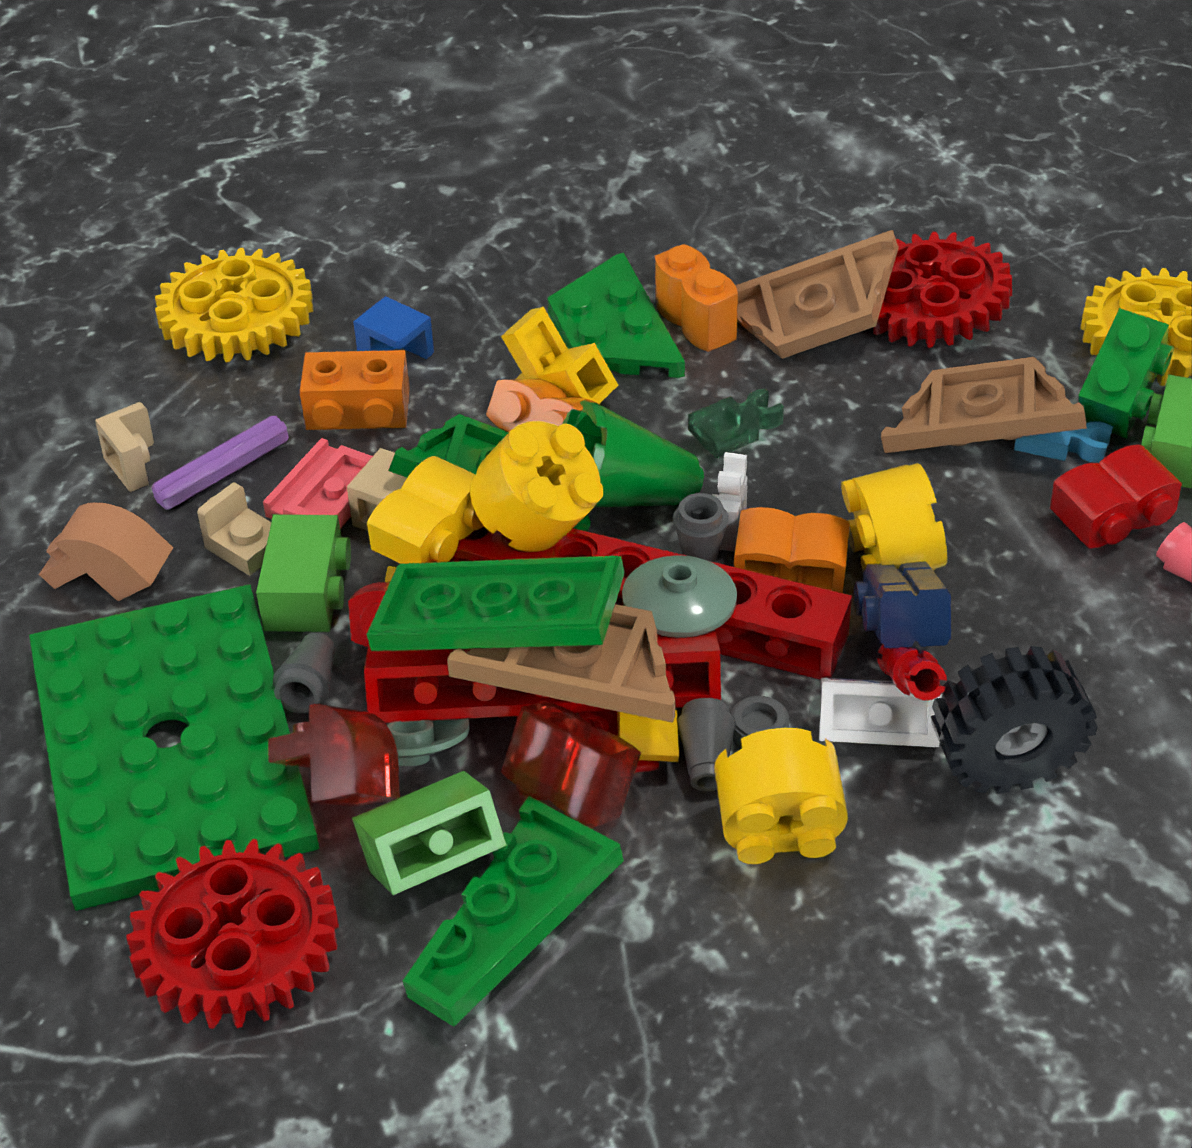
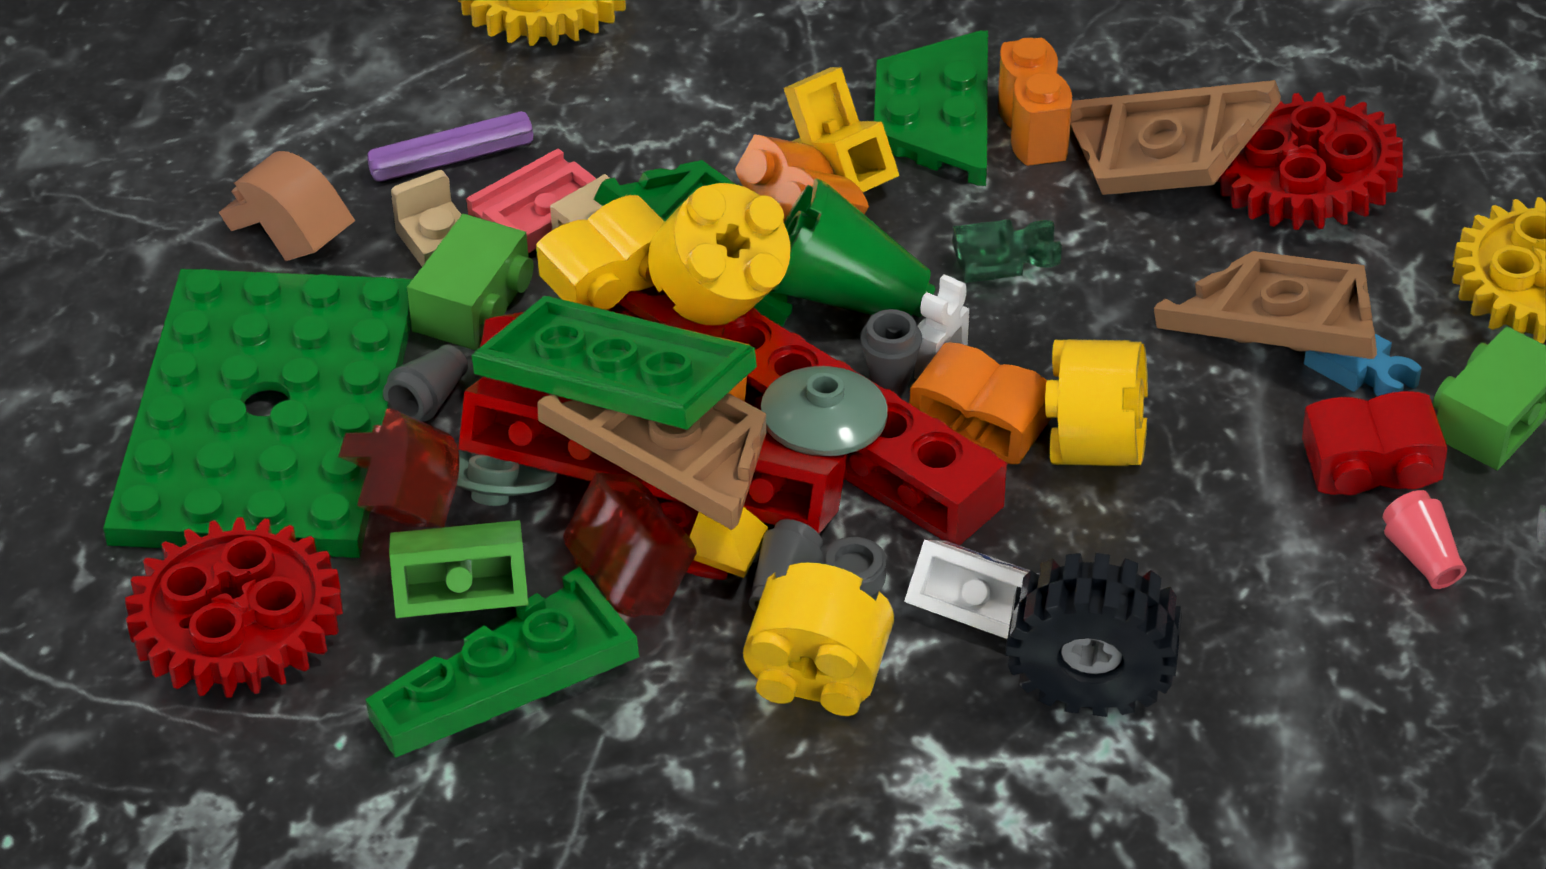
camera: 20 degrees right, 0 degrees up
(125, 443) = (364, 94): tan bracket -> none
(355, 390) = (620, 107): orange brick -> none
(394, 326) = (685, 49): blue panel -> none
(904, 605) = (1056, 488): dark blue brick -> none
(913, 671) = (1016, 552): red pin -> none
(1124, 371) = (1455, 309): green brick -> none

